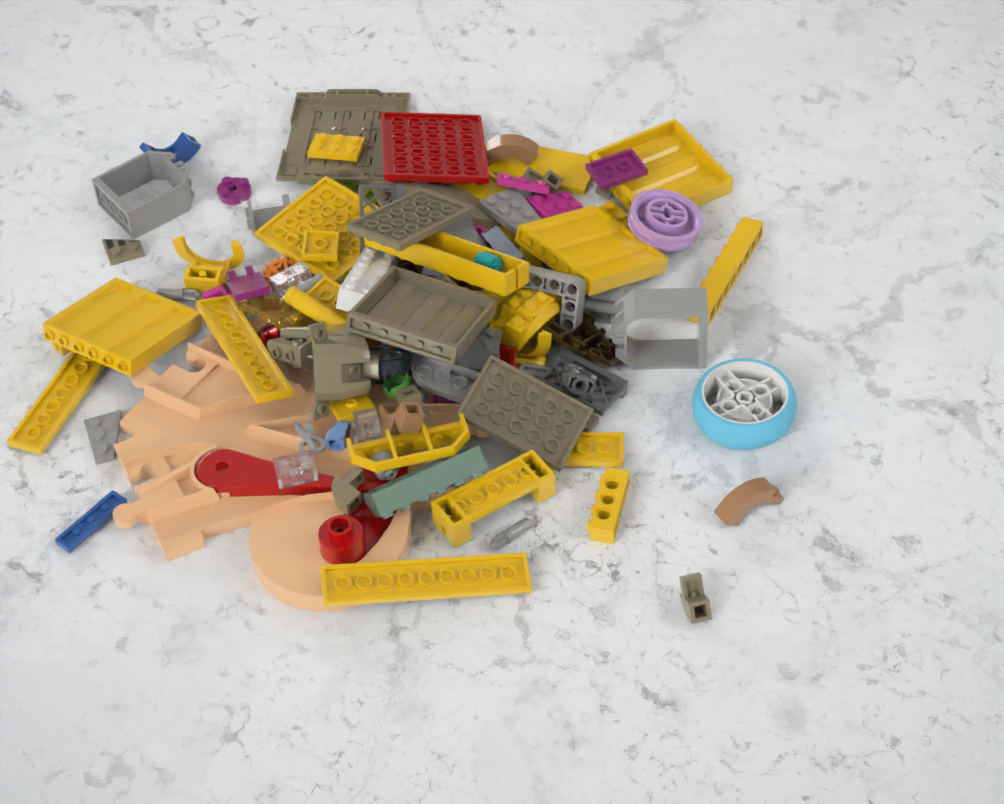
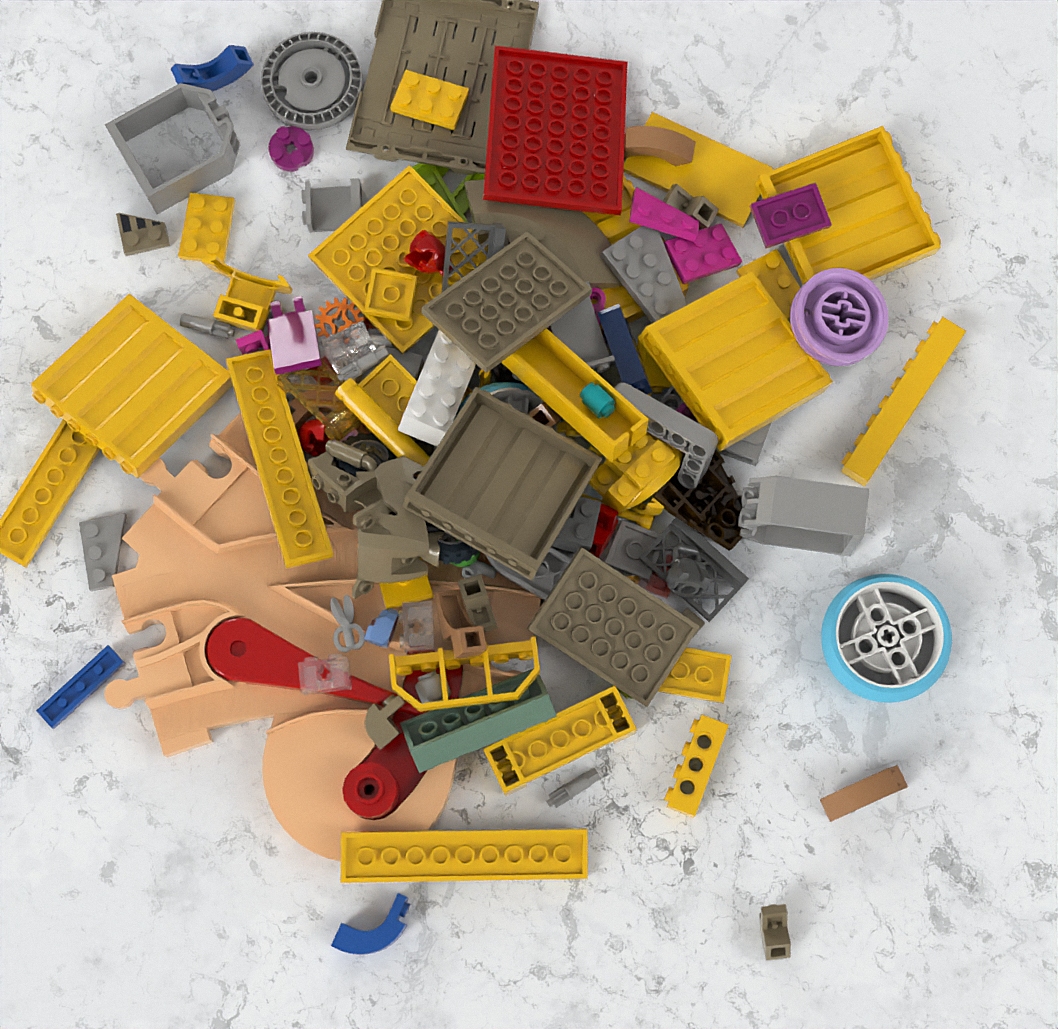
camera: 10 degrees right, 30 degrees up
(166, 232) = (206, 227): none -> yellow plate
(245, 150) = (307, 62): none -> light grey piece
(344, 213) = (427, 253): none -> red helmet
(355, 654) = (368, 942): none -> blue arch

